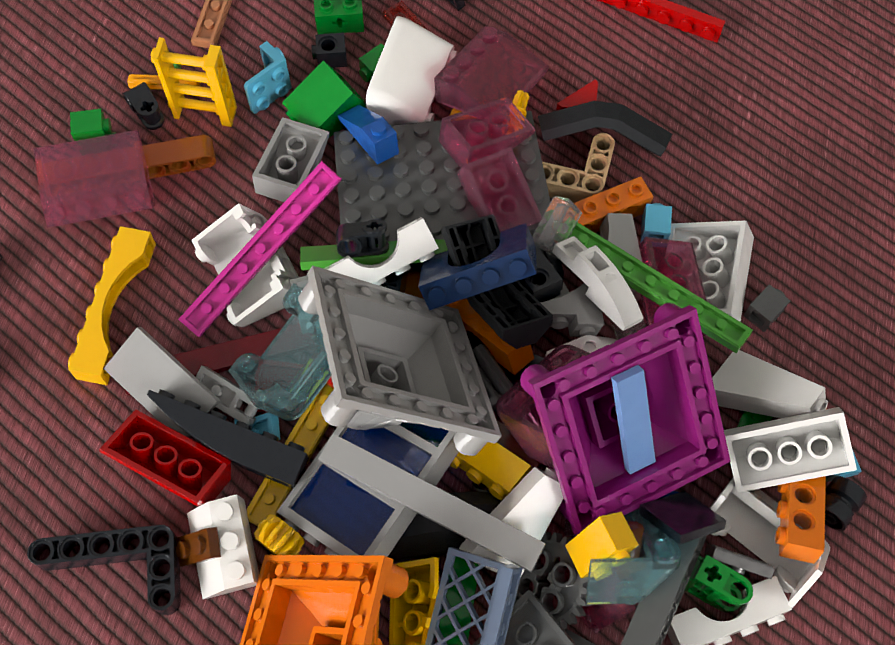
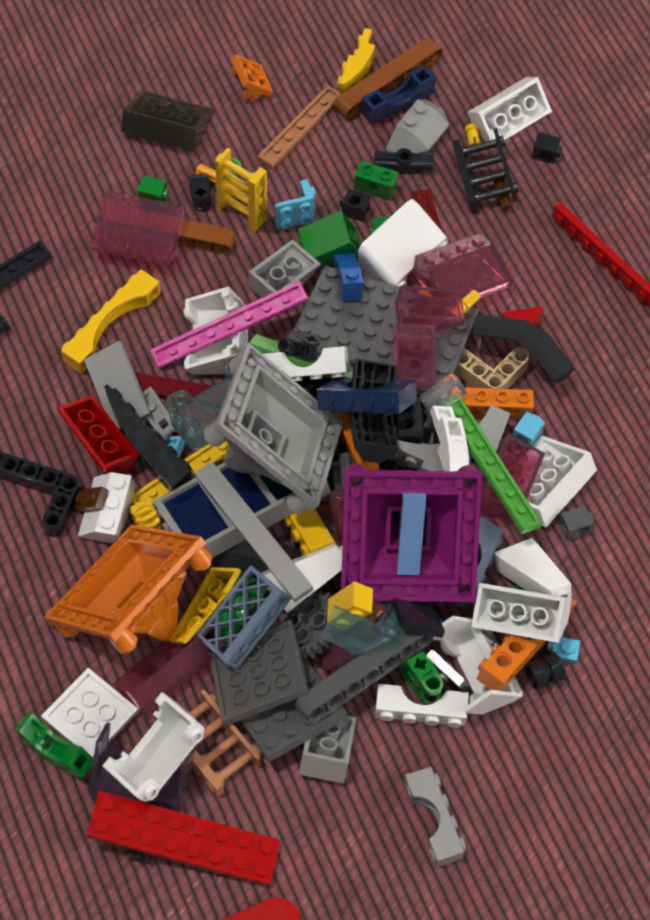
camera: 25 degrees right, 5 degrees down
(64, 41) = (166, 120): none -> clear smoke slope

